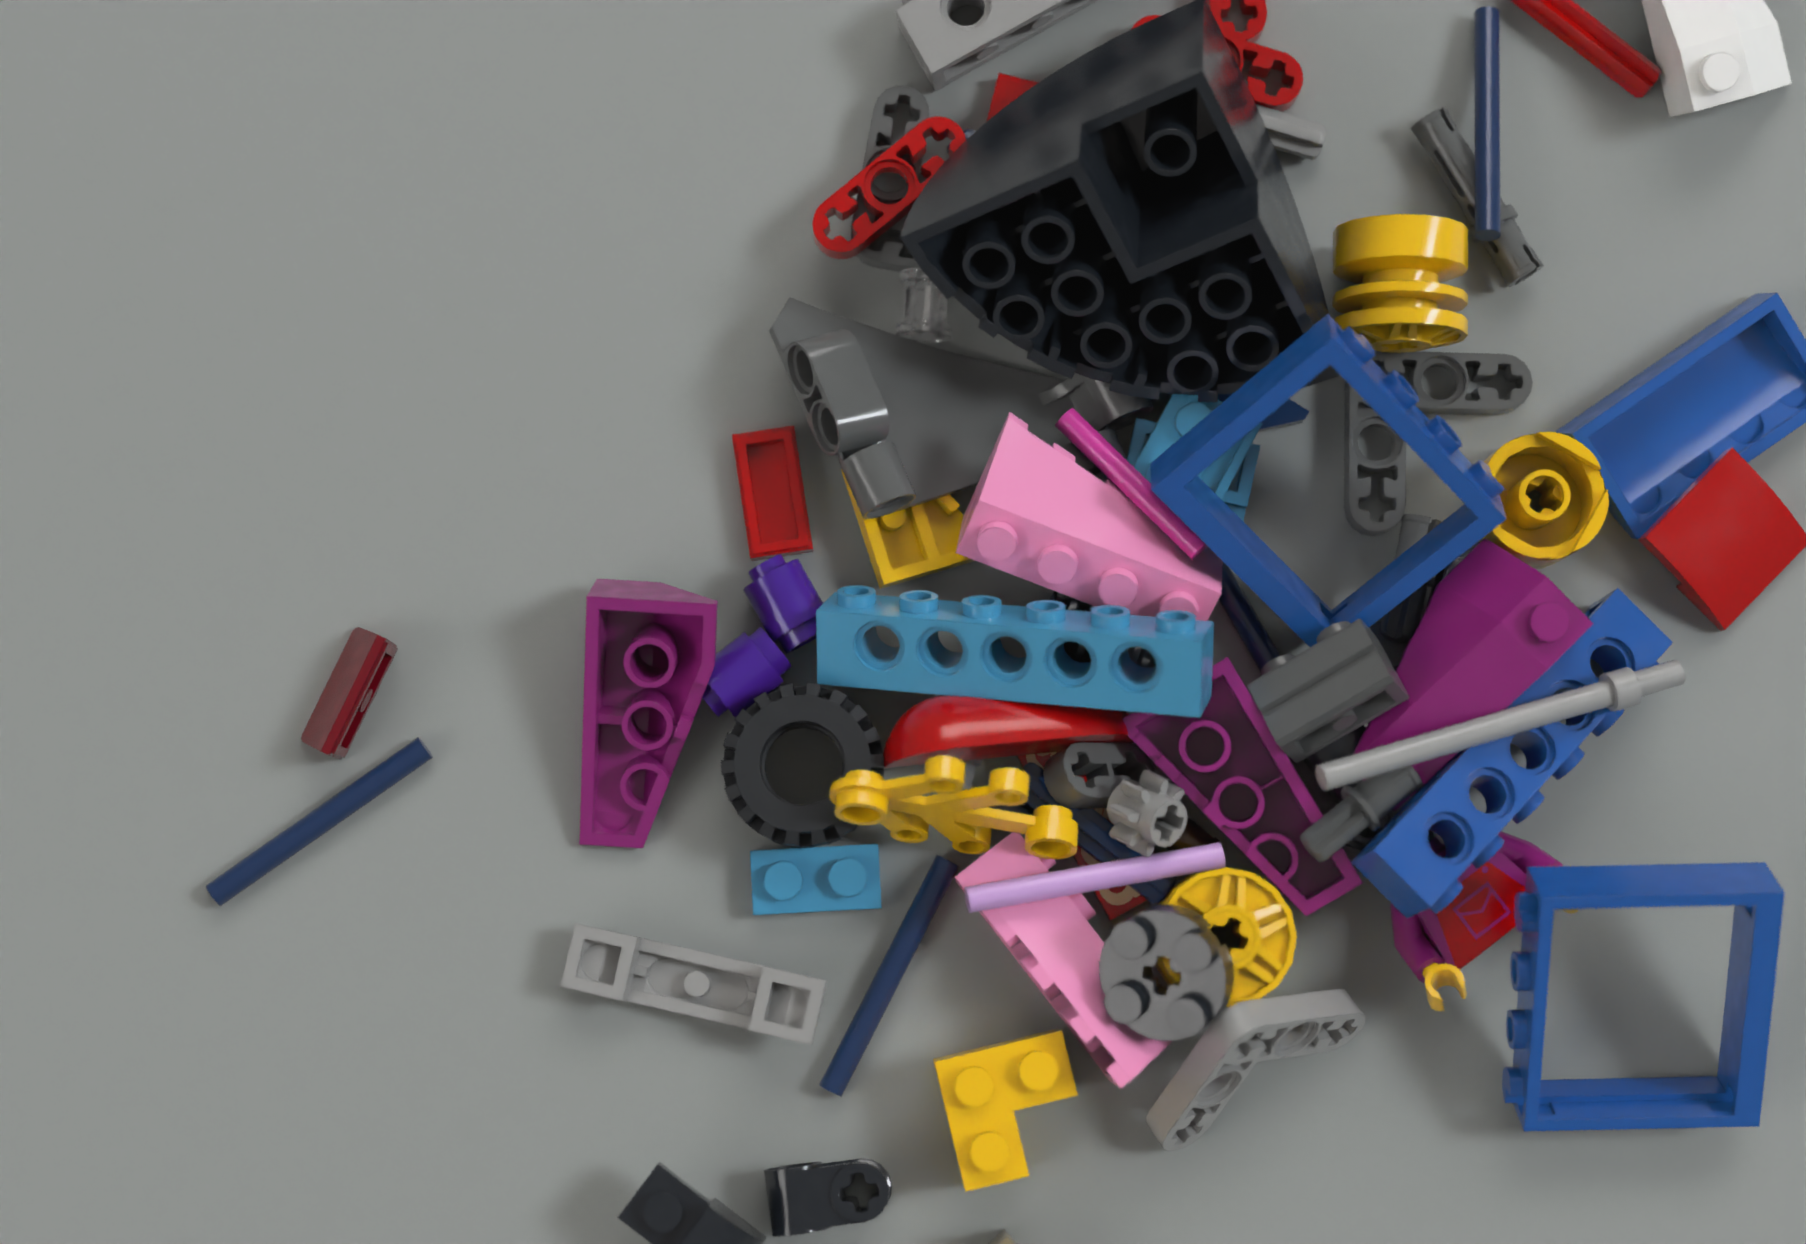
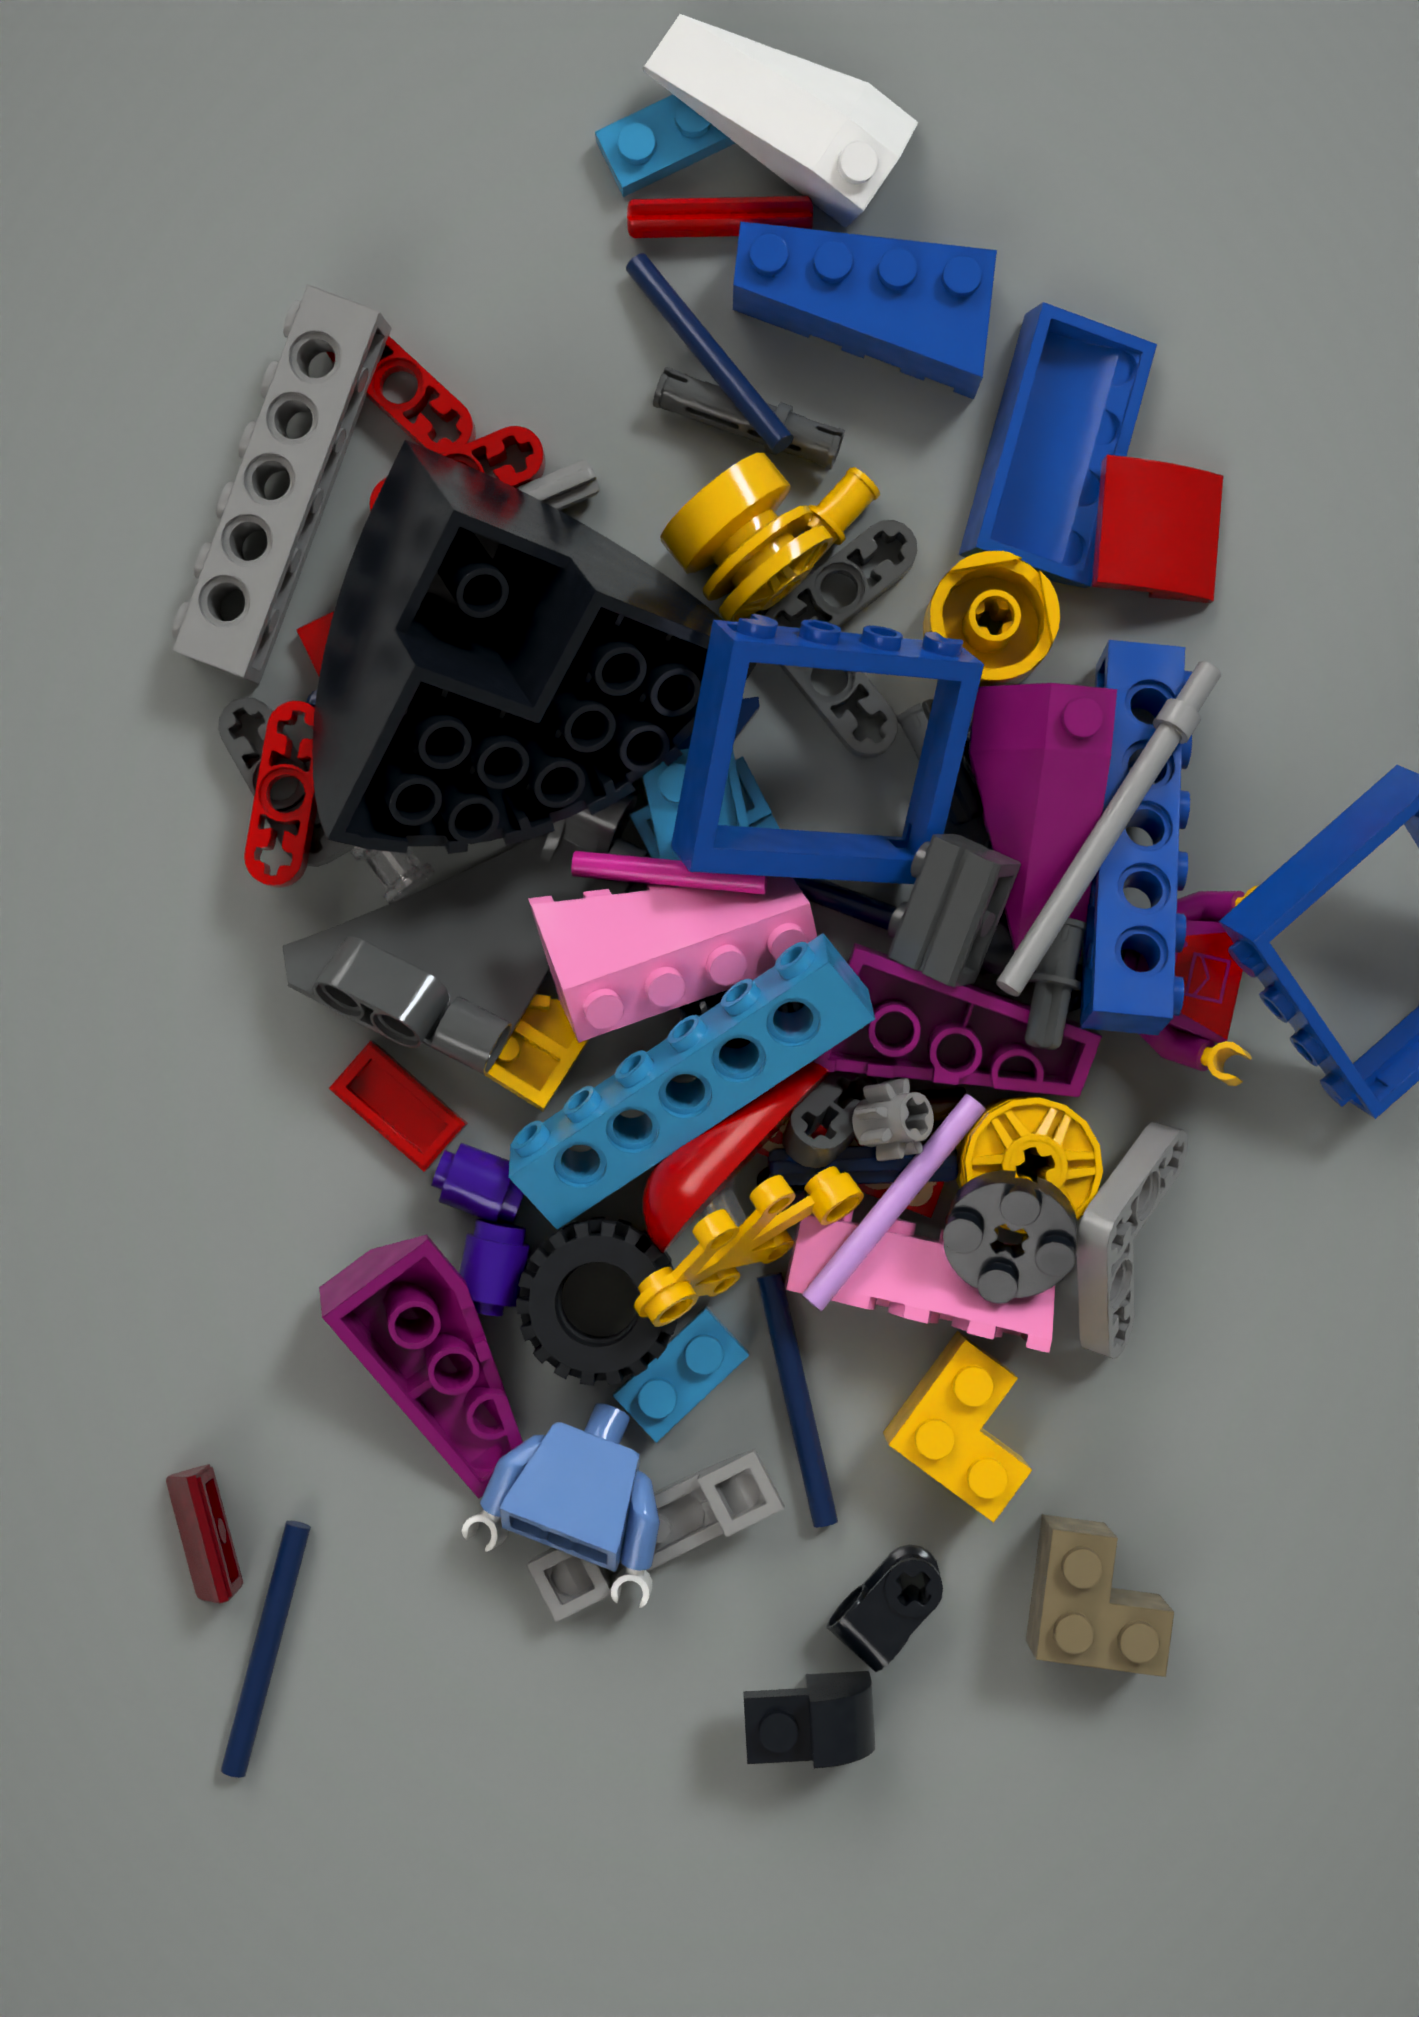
camera: 35 degrees left, 5 degrees up
(659, 902) = (577, 1497): none -> medium blue torso
(1497, 321) = (843, 504): none -> yellow pin
(1647, 182) = (873, 296): none -> blue wedge

